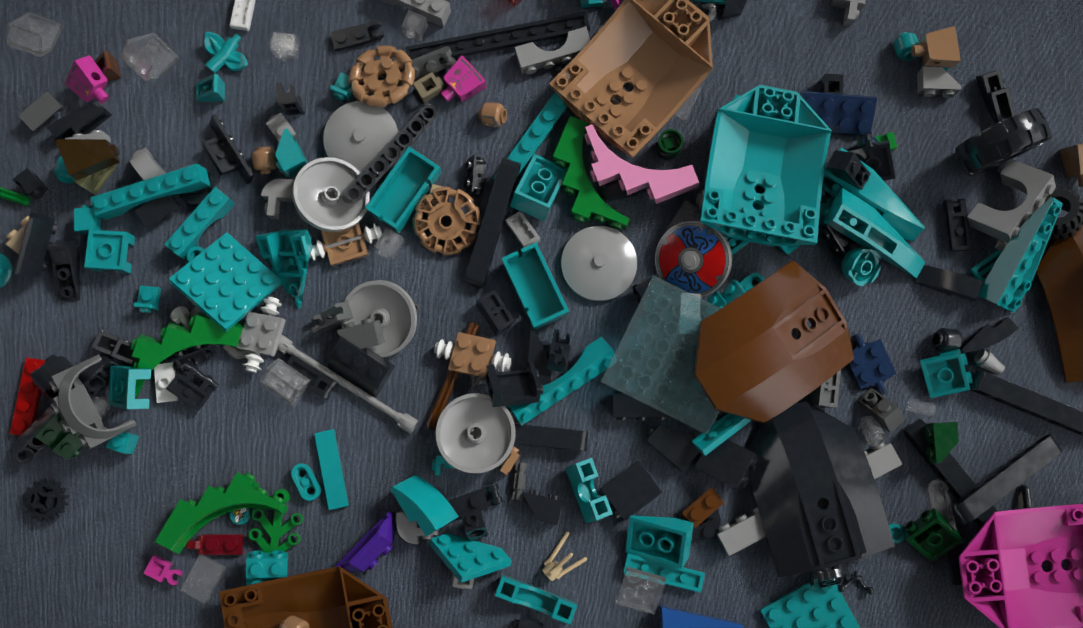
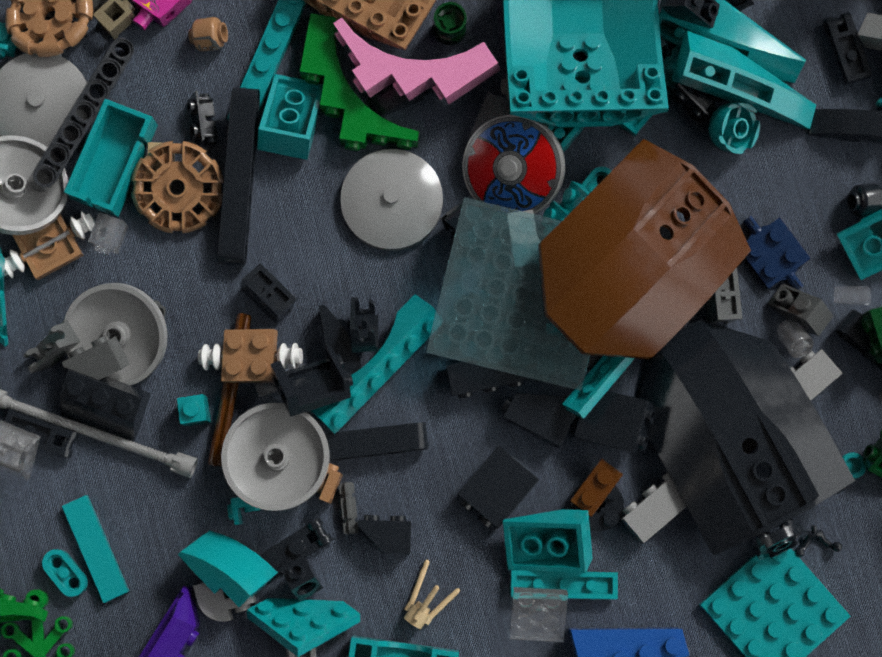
camera: 15 degrees left, 0 degrees up
(423, 385) = (193, 410): none -> teal brick
(522, 229) = (281, 177): light grey plate -> none
(535, 286) = (313, 247): teal piece -> none
(590, 502) = (430, 487): teal arch -> none

